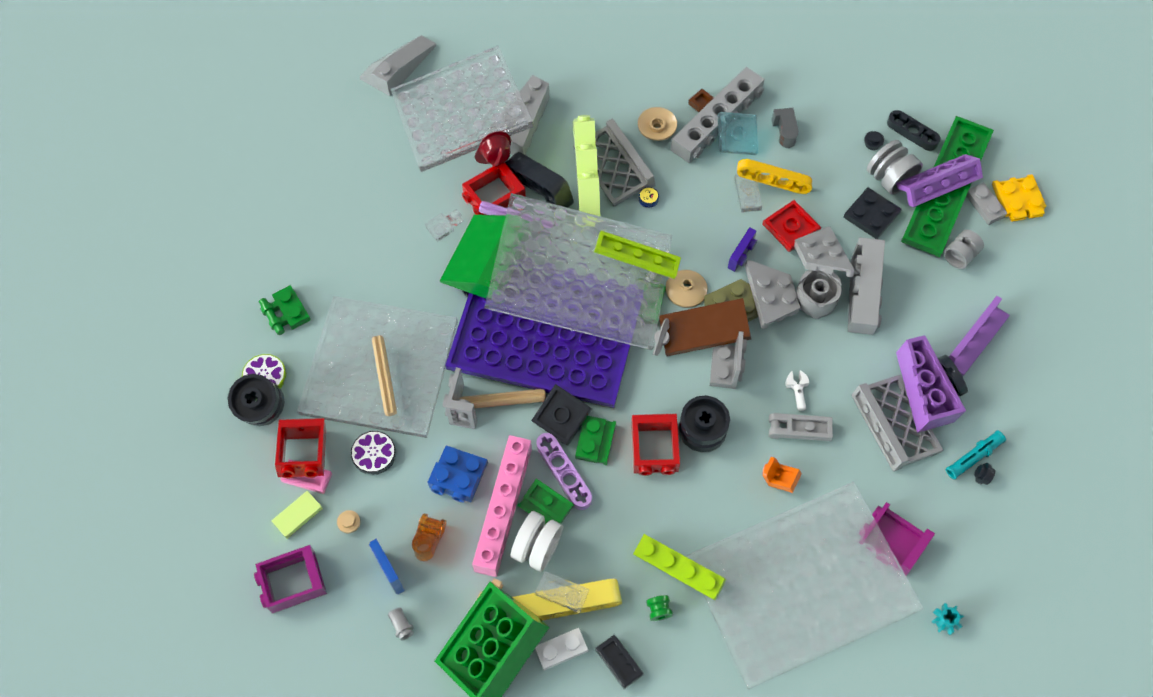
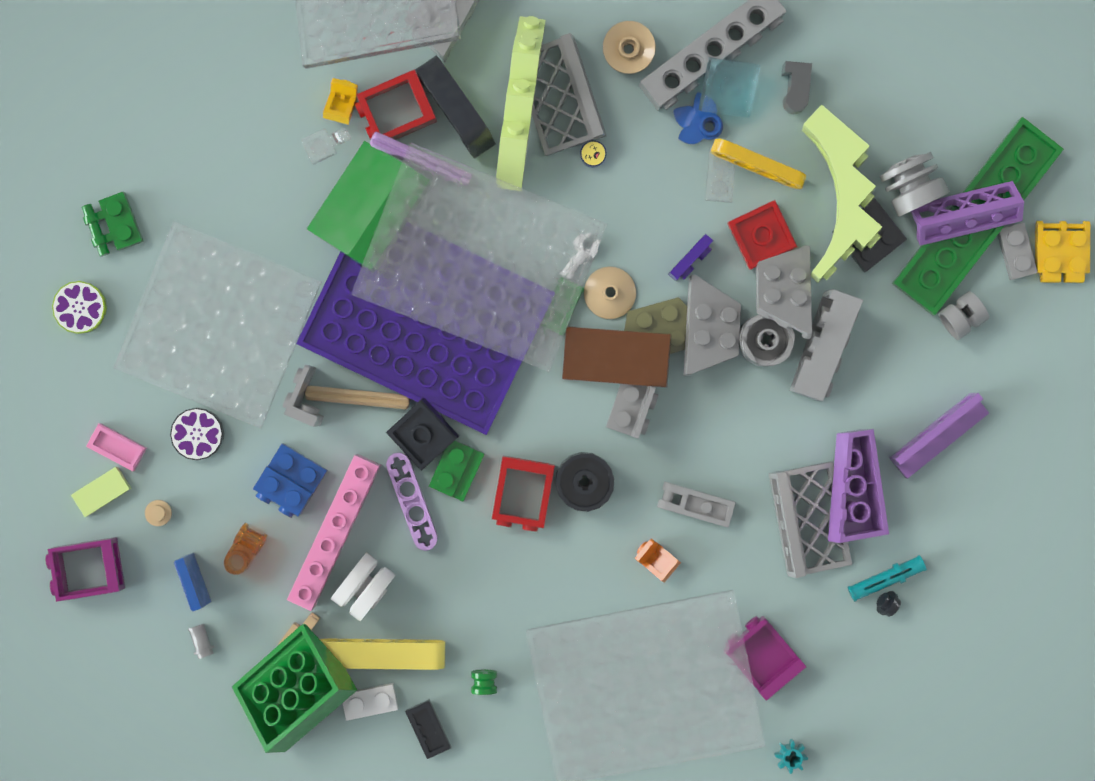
camera: 10 degrees right, 25 degrees up
(245, 392) = (65, 347): black wheel -> none
(300, 430) = (113, 391): red window -> none
(384, 376) = (220, 344): tan axle -> none
(451, 193) = (341, 101): none -> yellow bracket
(494, 149) = (406, 59): dark red piece -> none
(545, 502) = (383, 539): green plate -> none
(562, 592) = (379, 652): clear plate -> none
(637, 254) = (553, 254): lime plate -> none
(662, 337) = (561, 360): light grey piece -> none
(679, 567) = (515, 642): lime plate -> none
(700, 100) = (696, 22): reddish brown plate -> none
(719, 163) = (694, 123): none -> blue plate
(798, 388) = (707, 460): white bar -> none
(836, 161) = (842, 152): none -> yellowish green arch
(873, 140) = (905, 128): black plate -> none
(915, 138) = (972, 123): black beam -> none
(954, 375) = (890, 482): black tile -> none

